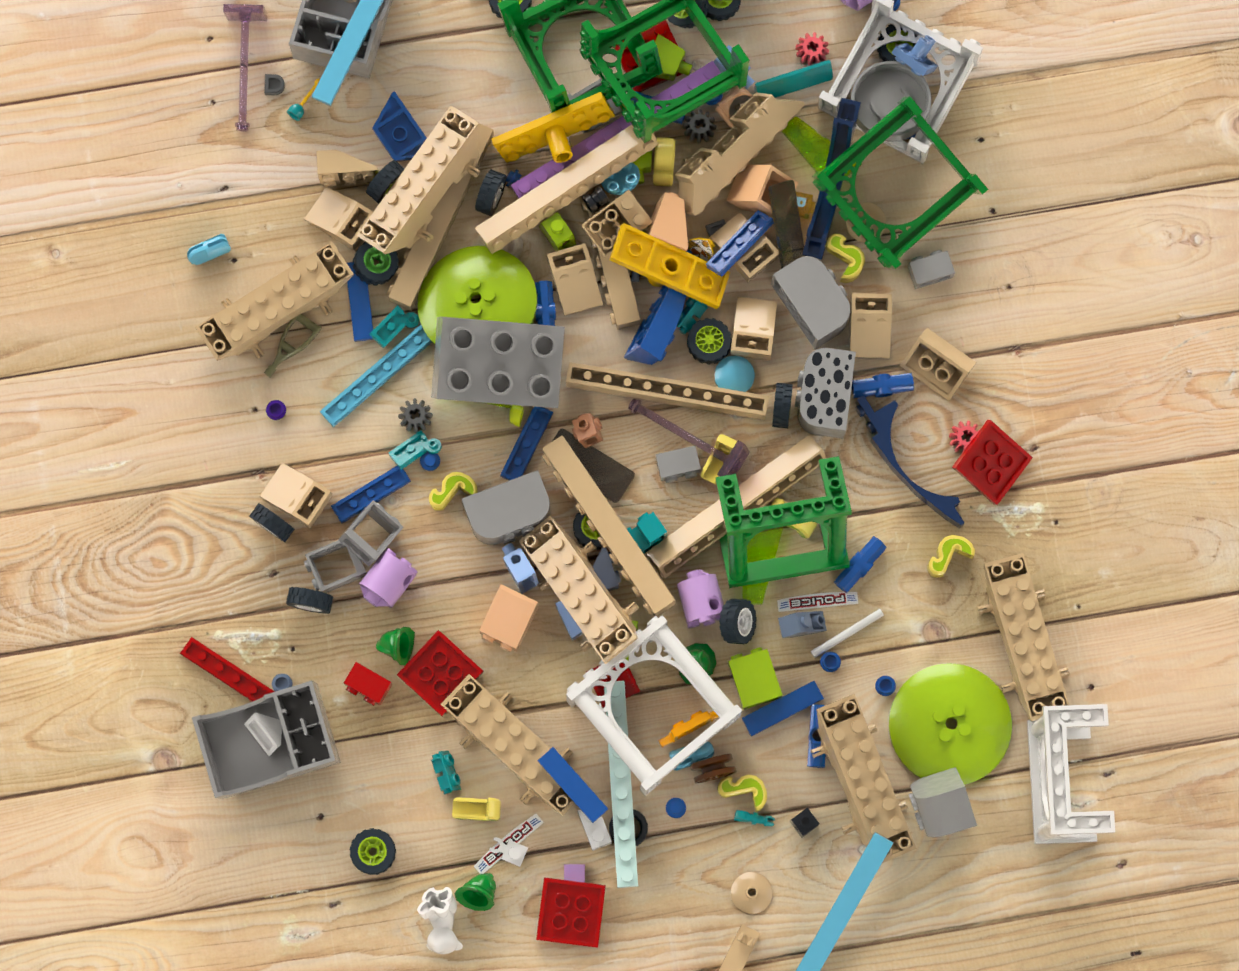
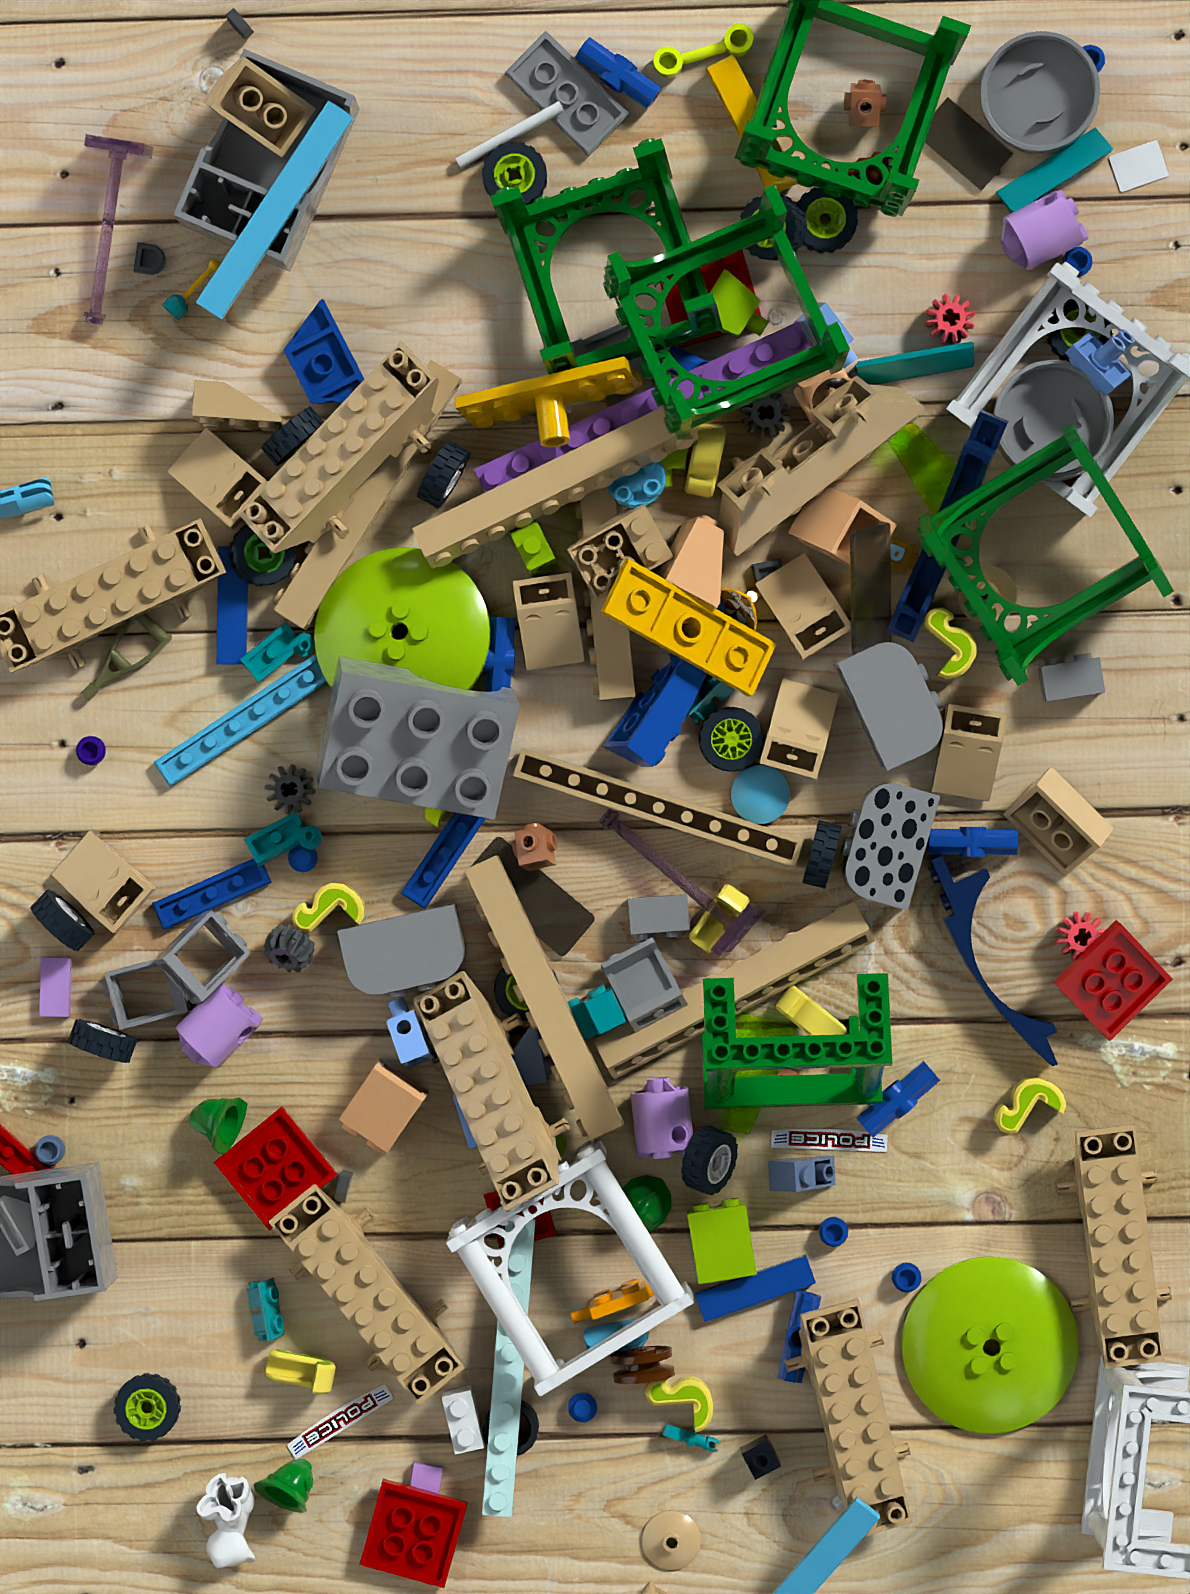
camera: 10 degrees right, 10 degrees up
(271, 572) = (55, 987): none -> lavender tile
(367, 683) = (170, 1169): red brick -> none
(429, 520) = (289, 948): none -> dark grey gear
(488, 679) = (343, 1186): none -> dark grey tile
(511, 852) = (343, 1435): white plate -> none
(512, 177) = (480, 453): blue plate -> none
(572, 785) = (438, 1367): blue tile -> none
(596, 199) = (595, 509): black wheel -> none
(675, 509) = (643, 984): none -> light grey panel
(740, 243) = (796, 605): blue tile -> none
(847, 633) = (864, 1193): white bar -> none
(942, 804) = (958, 1470): light grey brick -> none

